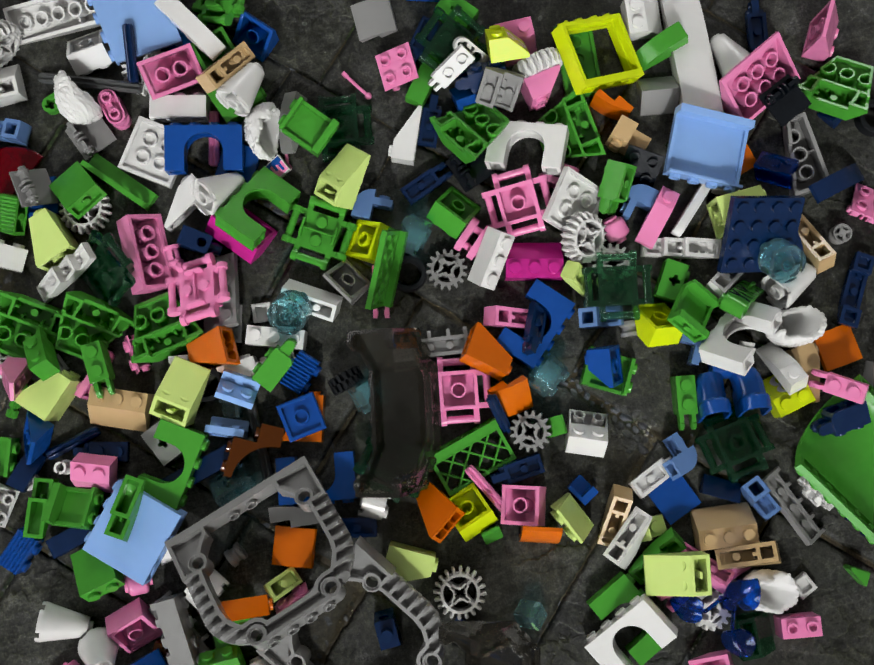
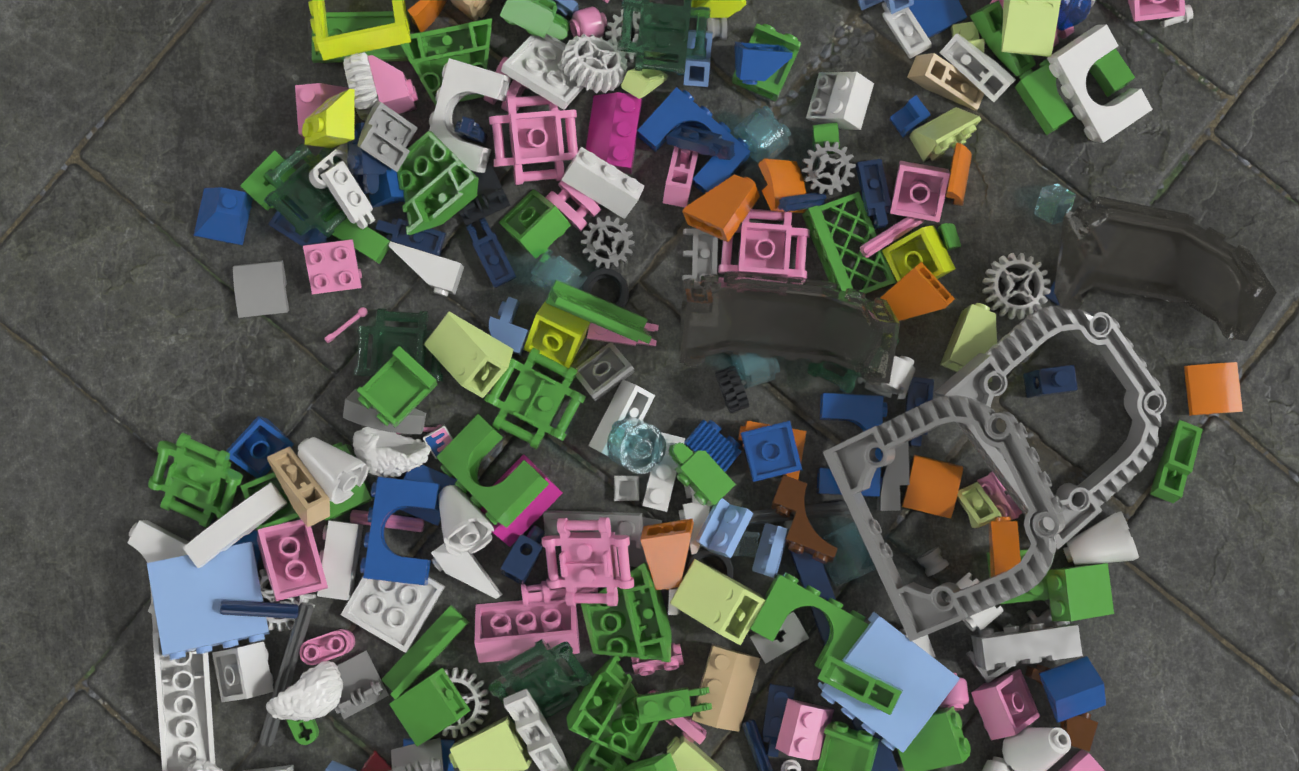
camera: 80 degrees left, 0 degrees up
(515, 152) = (470, 130): none -> dark blue hinge

